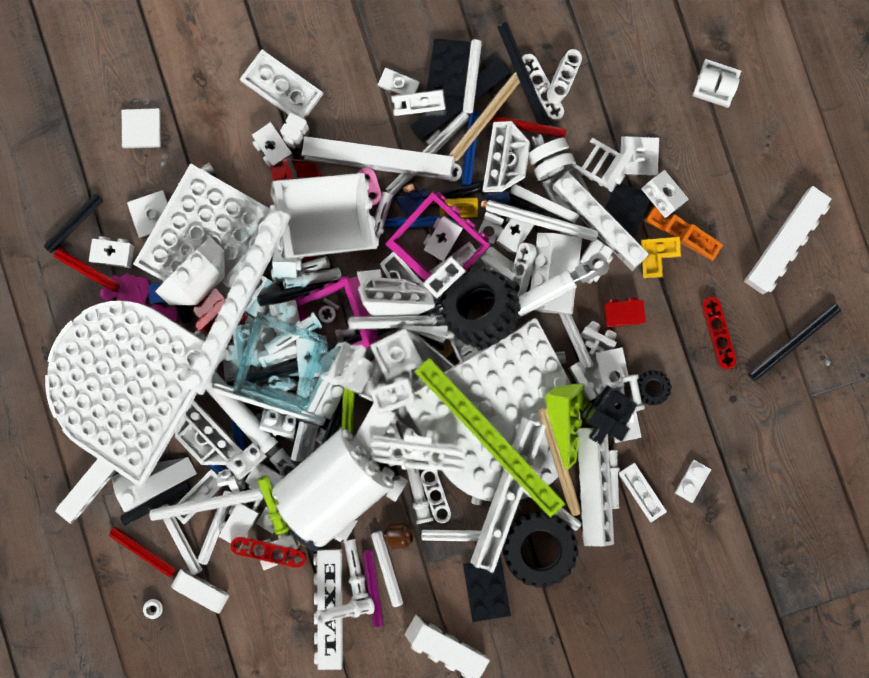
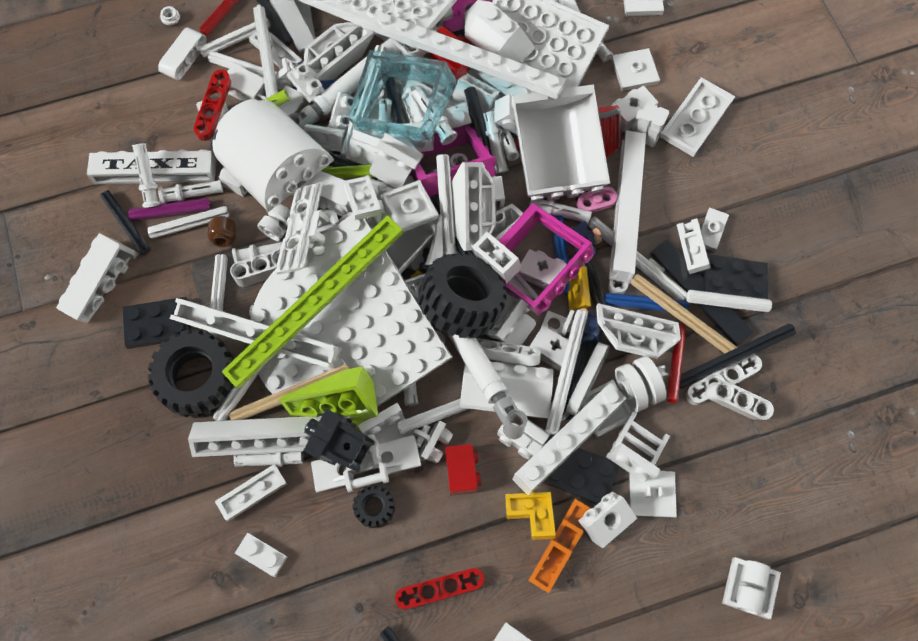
camera: 85 degrees right, 15 degrees down
(226, 141) = (635, 69): none -> white plate
(385, 630) = (125, 222): none -> black axle

